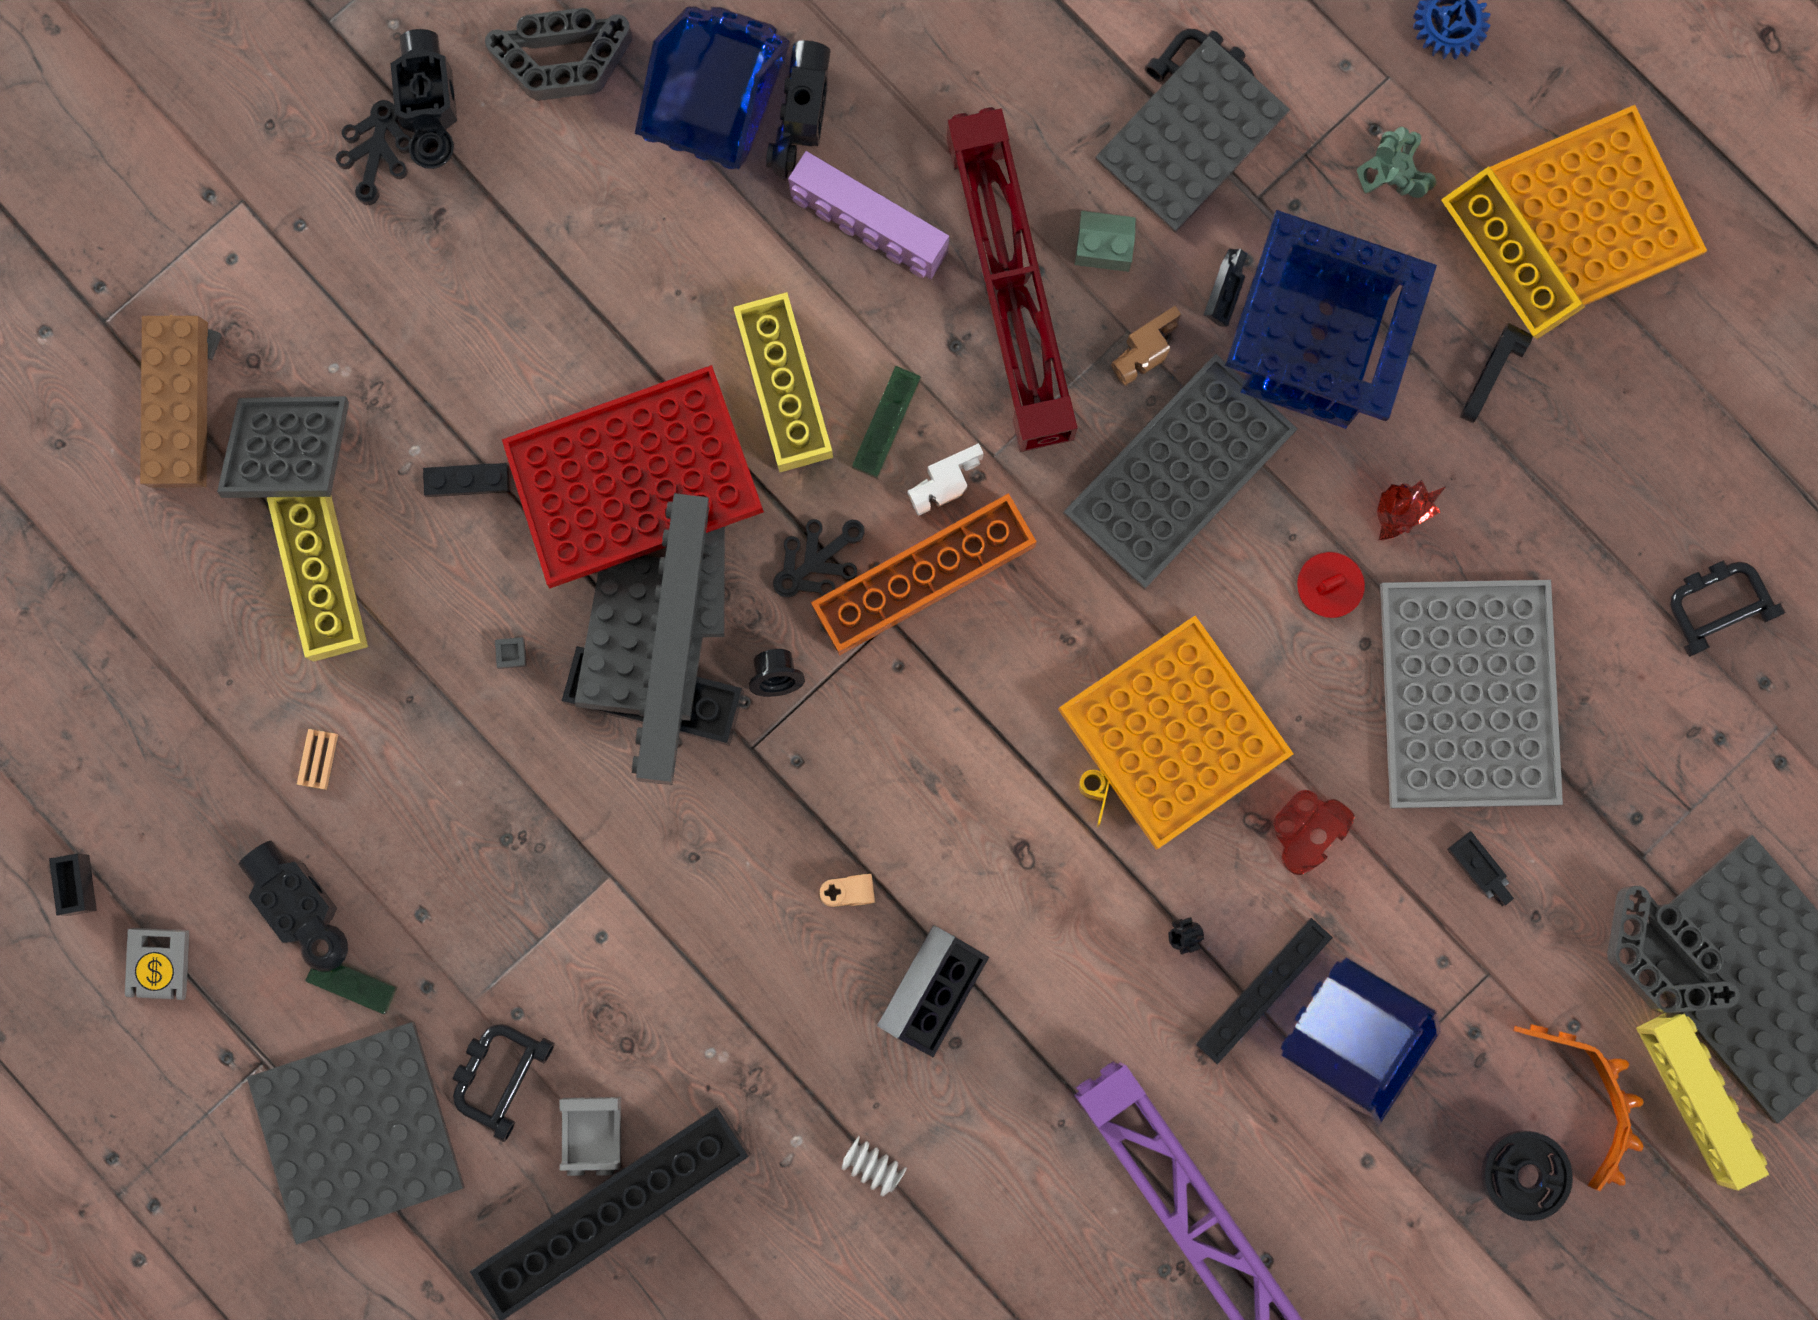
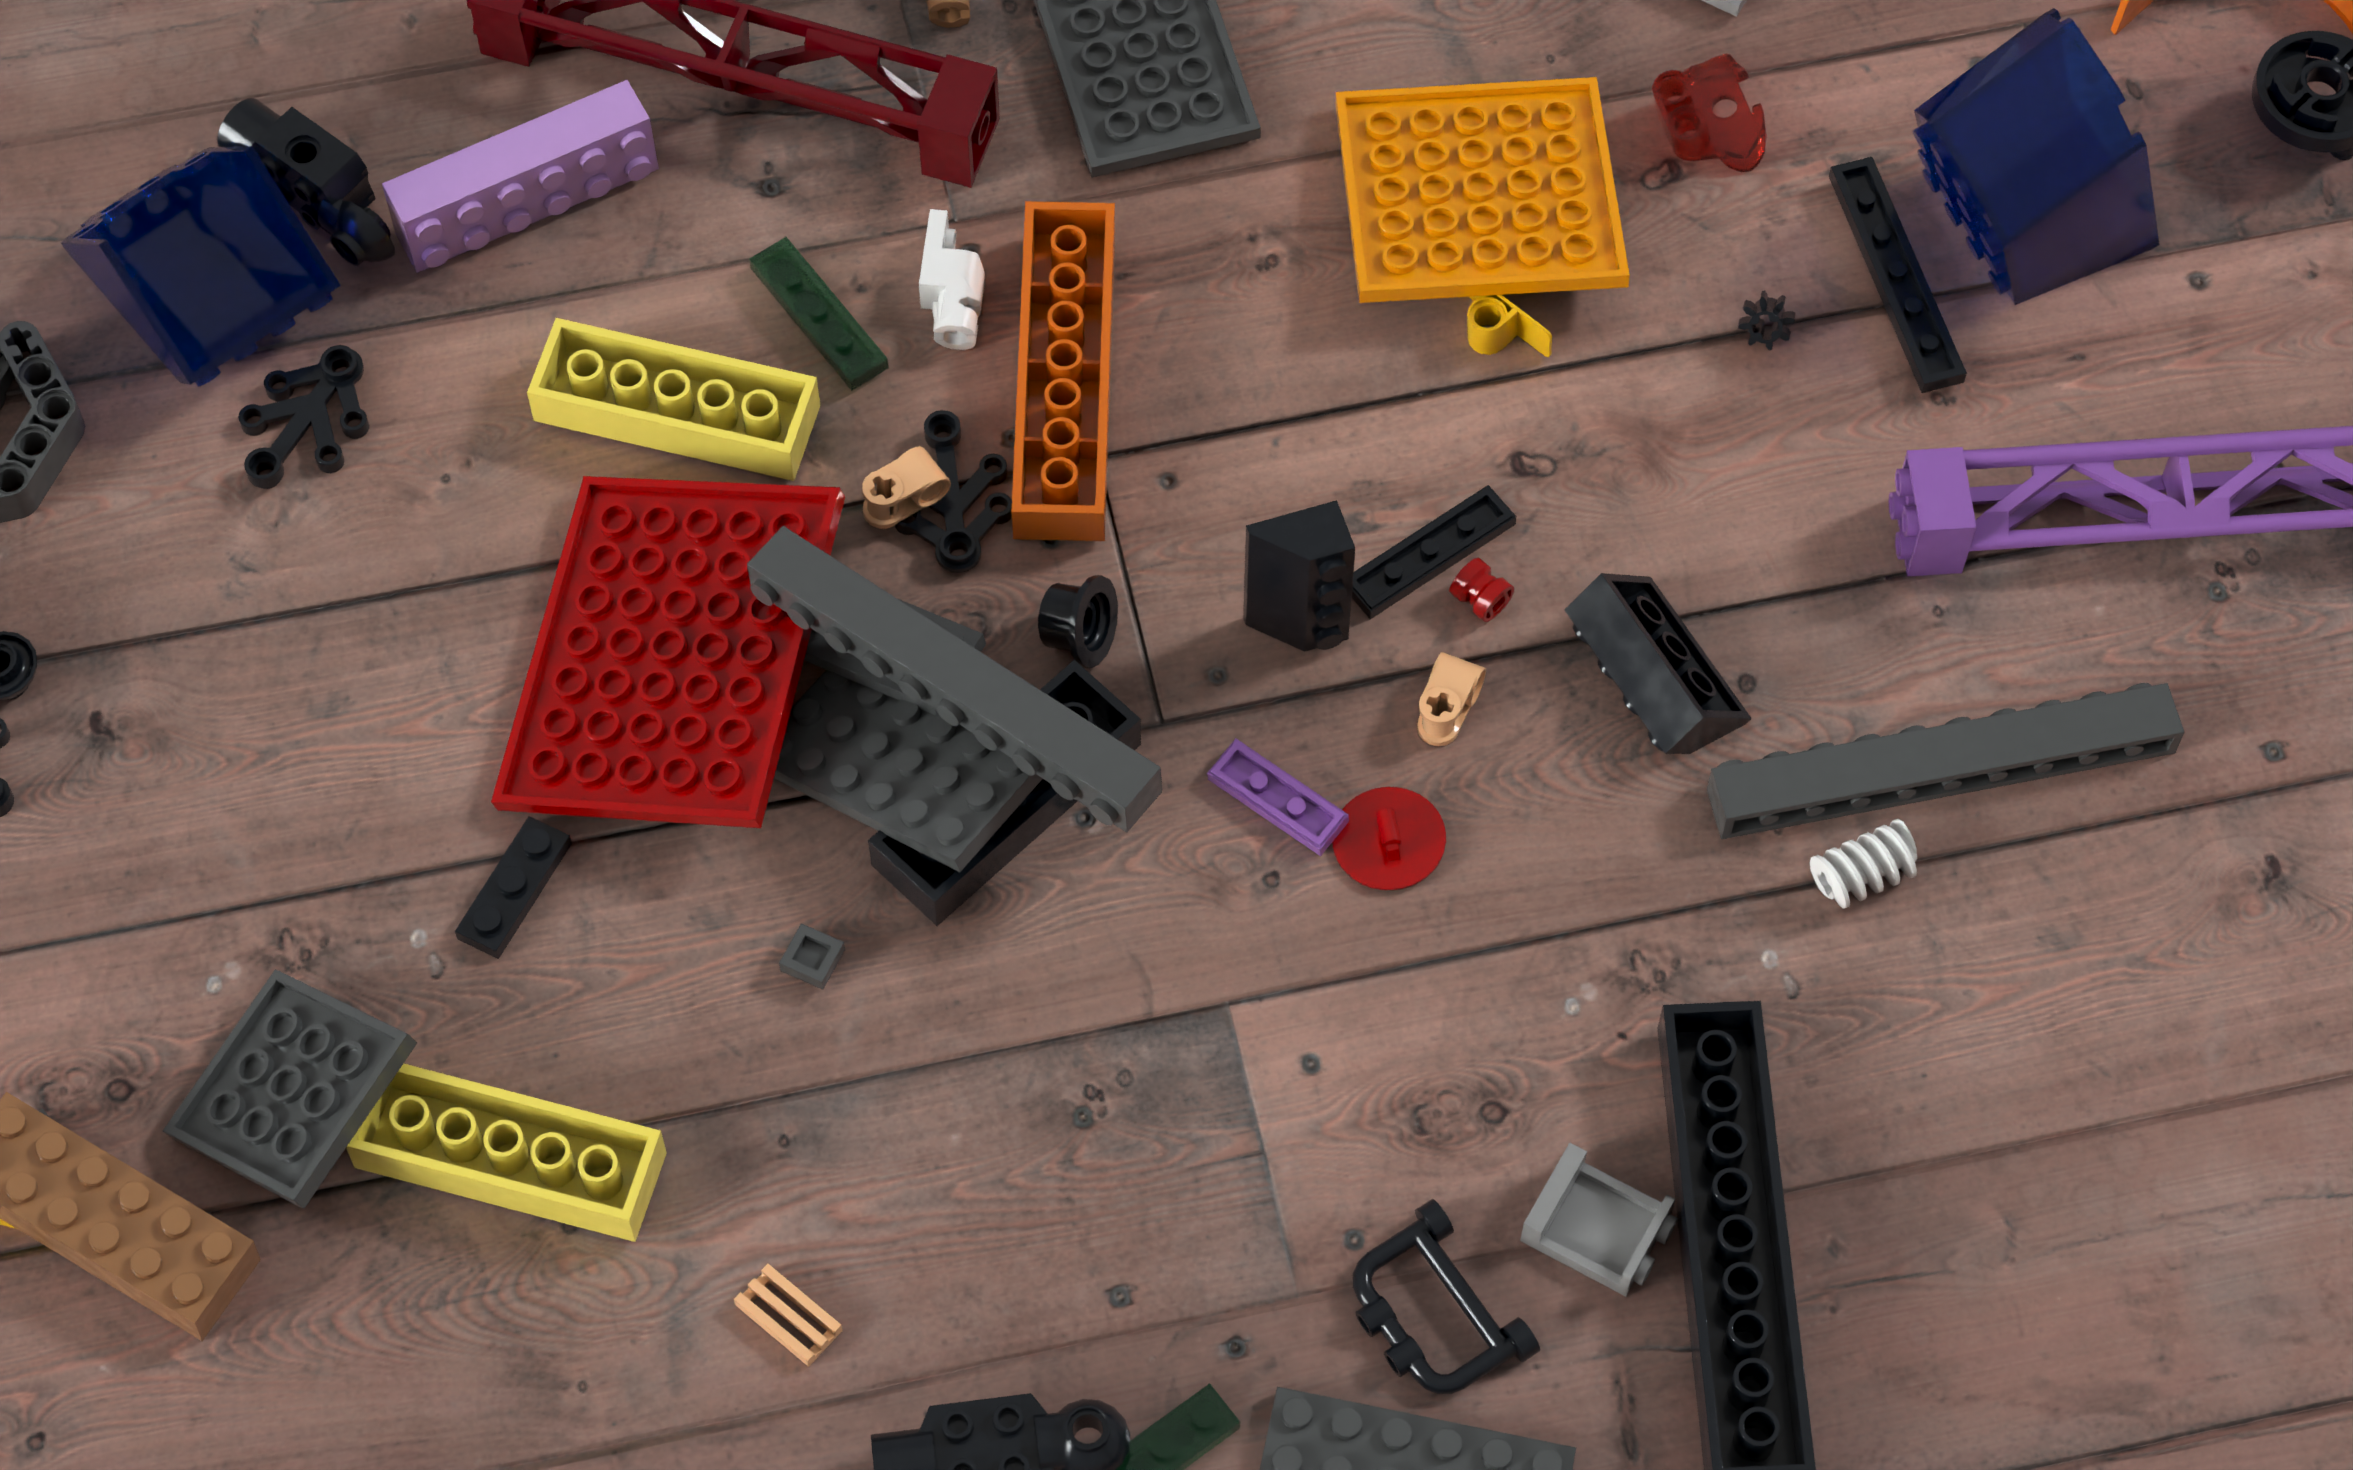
camera: 60 degrees left, 20 degrees down
(671, 199) = (306, 411): none -> black plant
(739, 835) = (1278, 797): none -> medium lavender tile
(750, 905) = (1390, 838): none -> red shield
(806, 535) = (905, 486): none -> light nougat piece
(852, 784) = (1300, 577): none -> black slope
(923, 872) = (1483, 591): none -> red wheel
(934, 830) = (1430, 551): none -> black tile
(963, 1177) = (1944, 760): none -> dark grey brick

